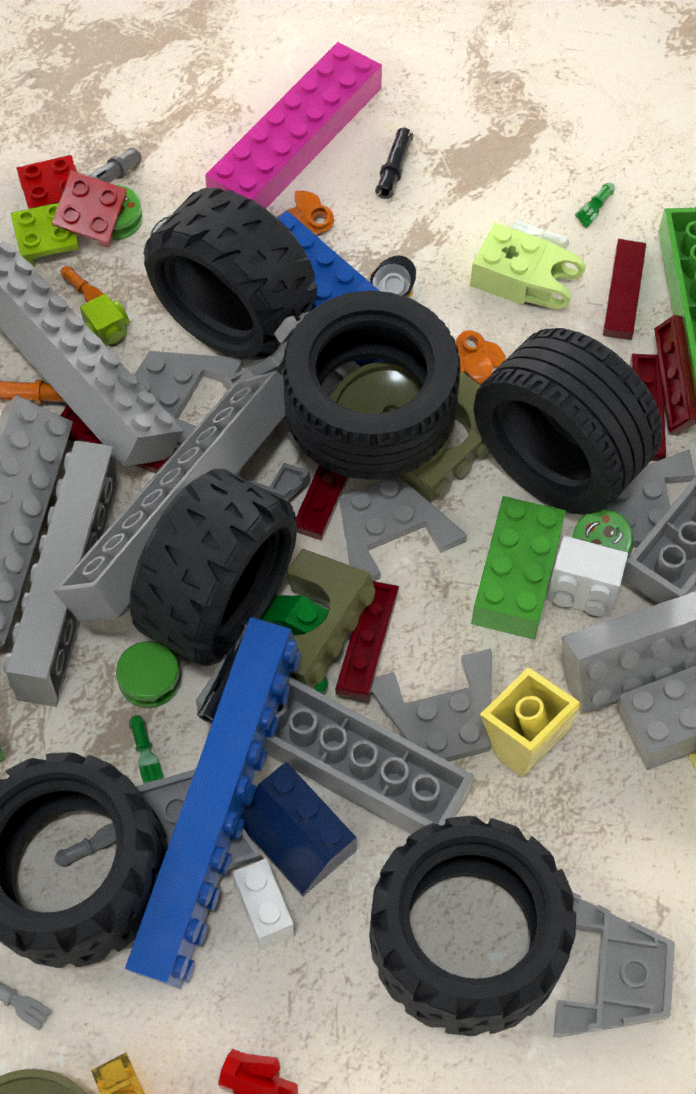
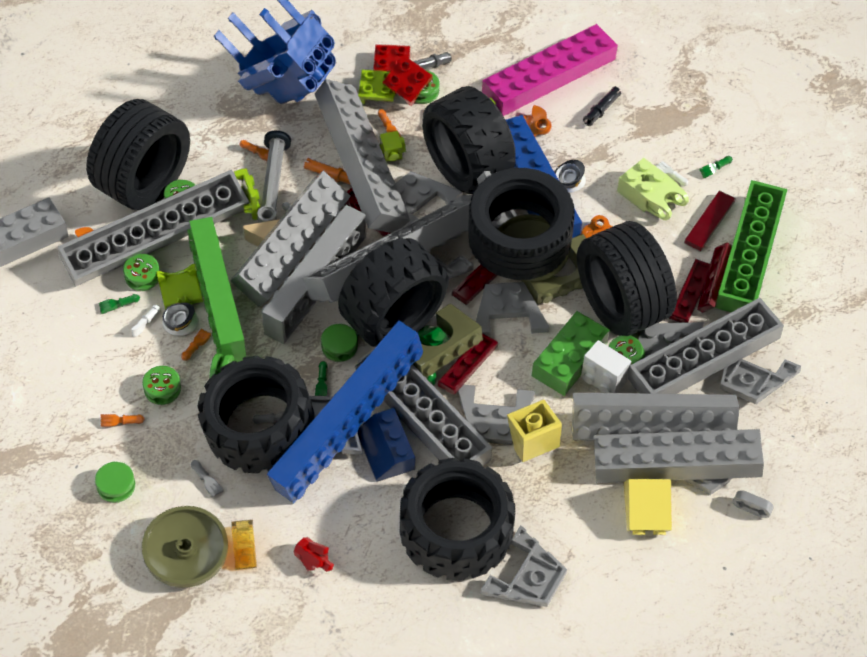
camera: 20 degrees right, 5 degrees down
(263, 904) = (352, 475): white brick -> none

